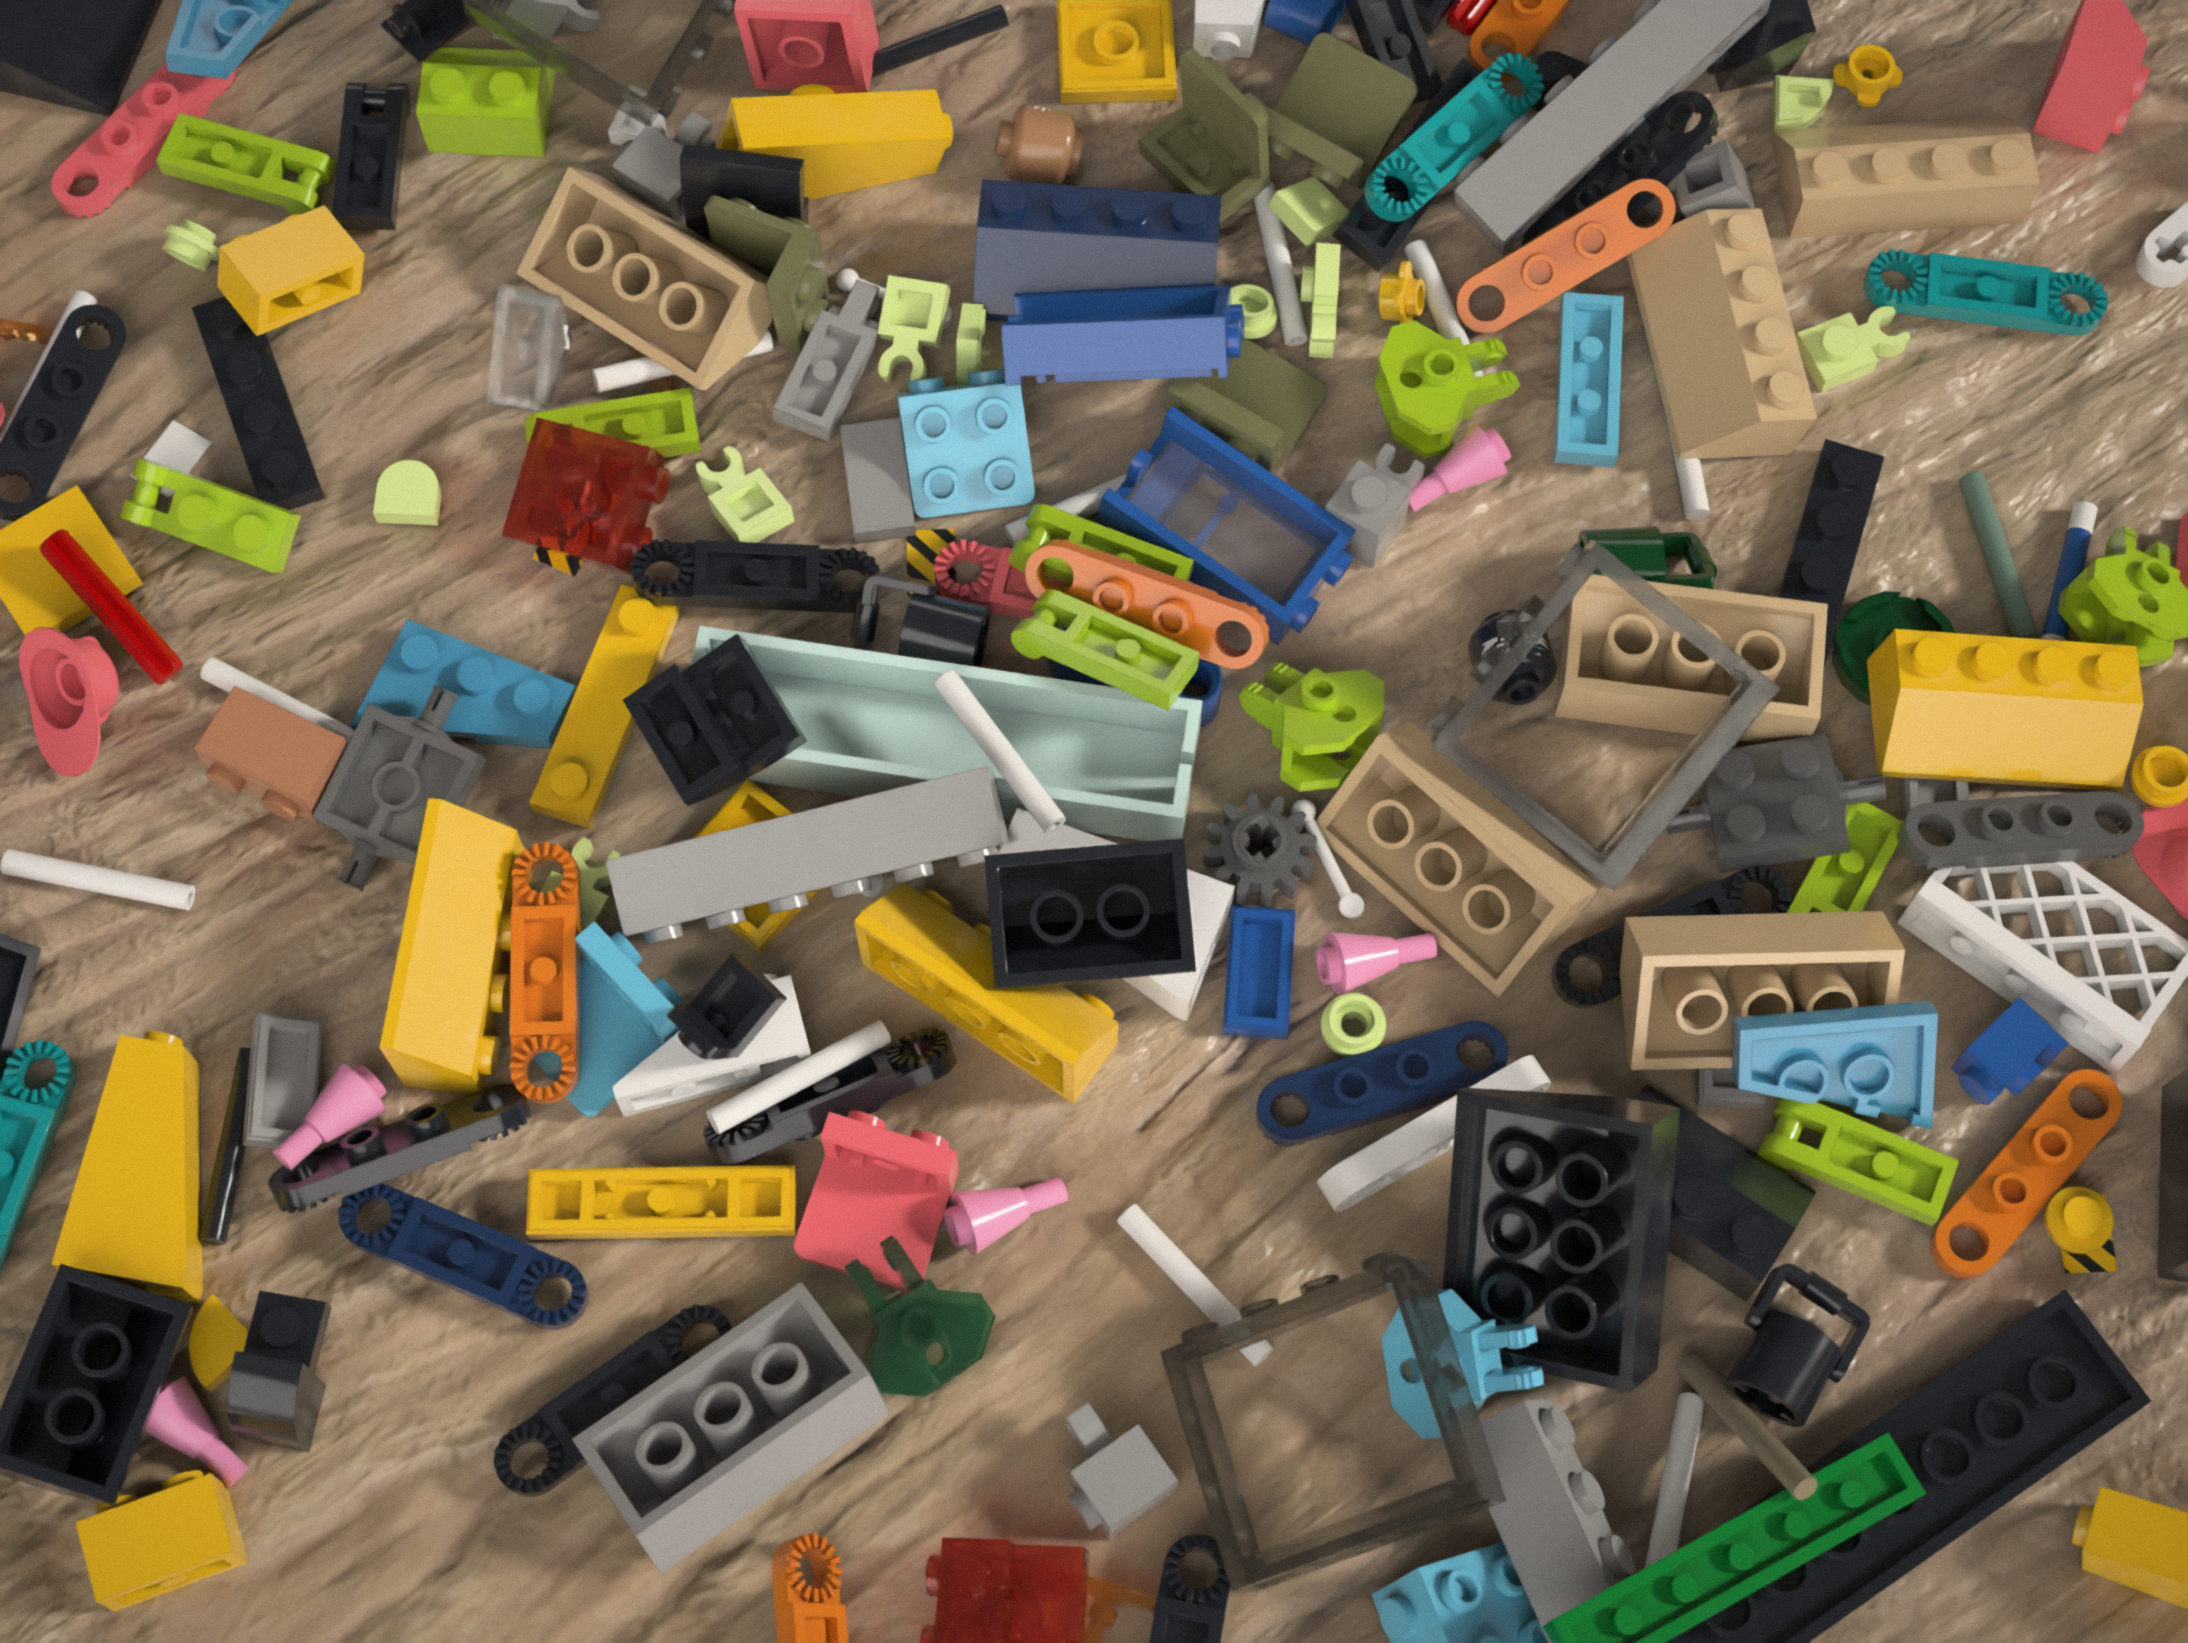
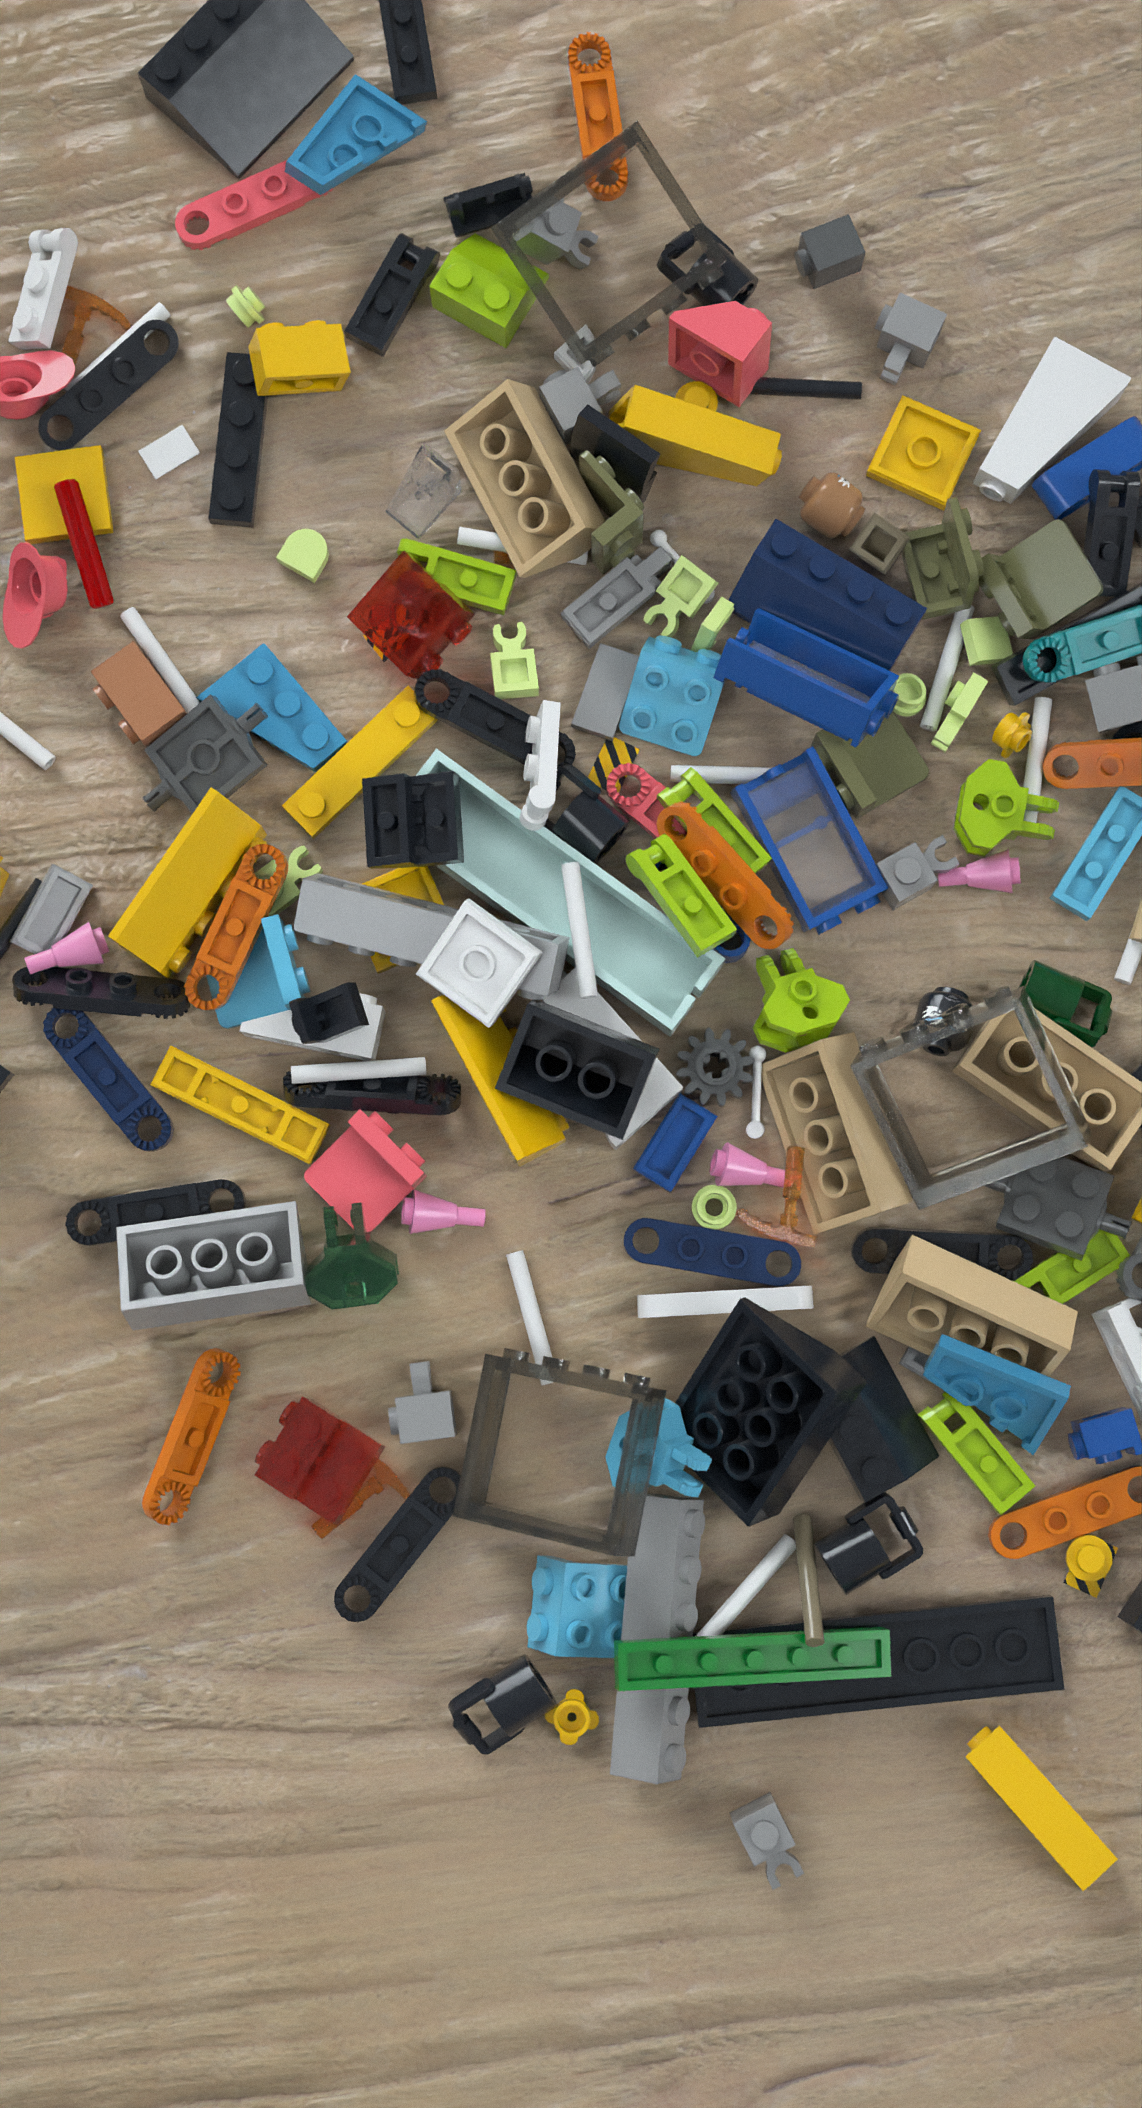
camera: 30 degrees right, 15 degrees up
(212, 516) = (174, 508): lime plate -> none
(245, 163) = (307, 261): lime plate -> none
(845, 581) = (541, 765): none -> white plate
(893, 840) = (479, 963): none -> white plate
(1122, 158) = (880, 544): none -> dark tan slope
(1442, 956) = (791, 1193): none -> clear orange piece

